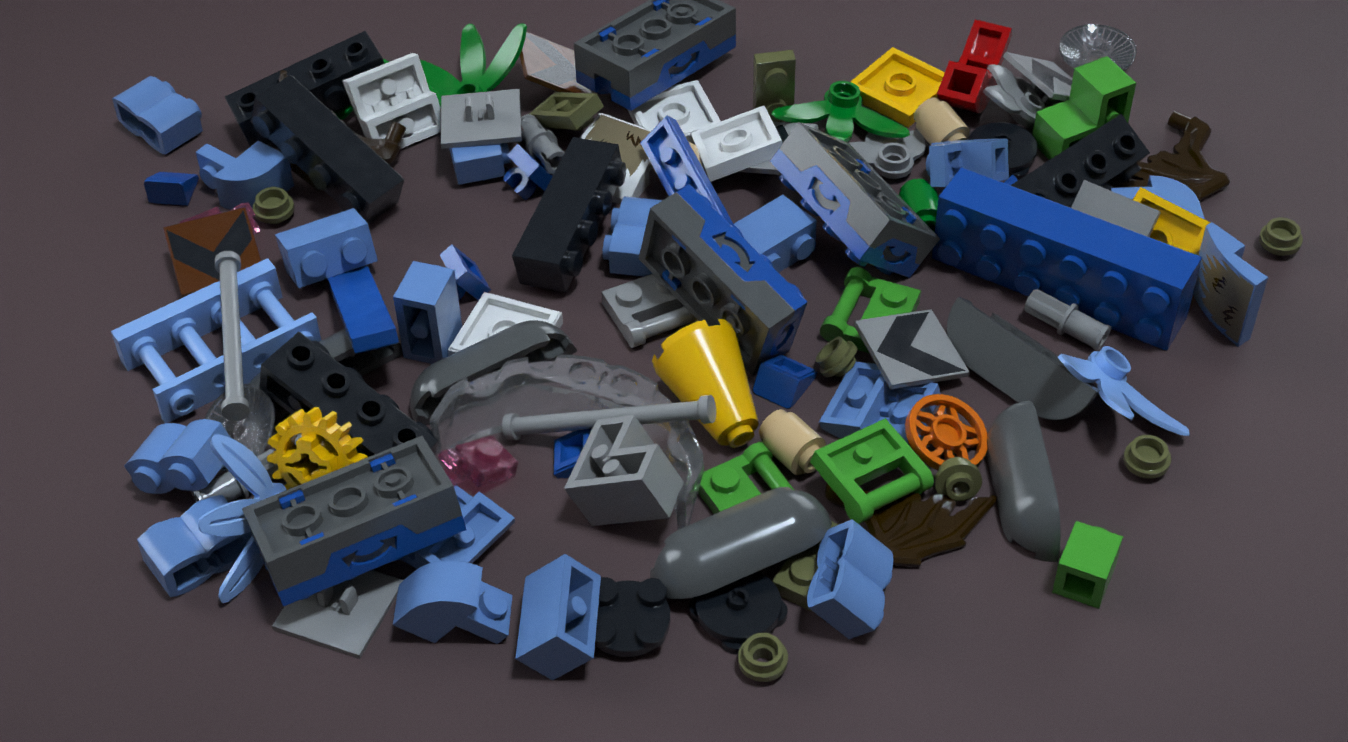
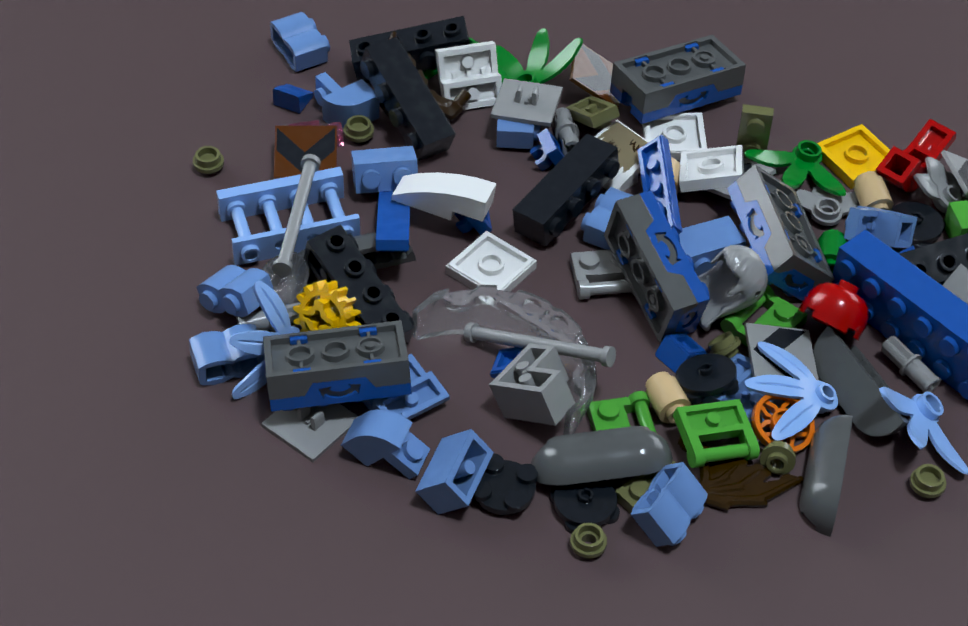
camera: 15 degrees right, 0 degrees up
(84, 294) = (208, 160): none -> olive plate
(389, 258) = (446, 194): none -> white slope
(427, 312) = (438, 235): medium blue brick -> none
(480, 460) = (439, 350): clear pink plate -> none
(528, 339) = (504, 273): dark grey brick -> none
(709, 362) = (627, 327): yellow cone -> none
(827, 271) = (733, 283): none -> light grey piece
(833, 401) = (707, 376): none -> black piece
(959, 271) = (837, 307): none -> red cylinder
(972, 386) = (815, 395): none -> light blue plant
(1087, 564) = (848, 543): bright green brick -> none

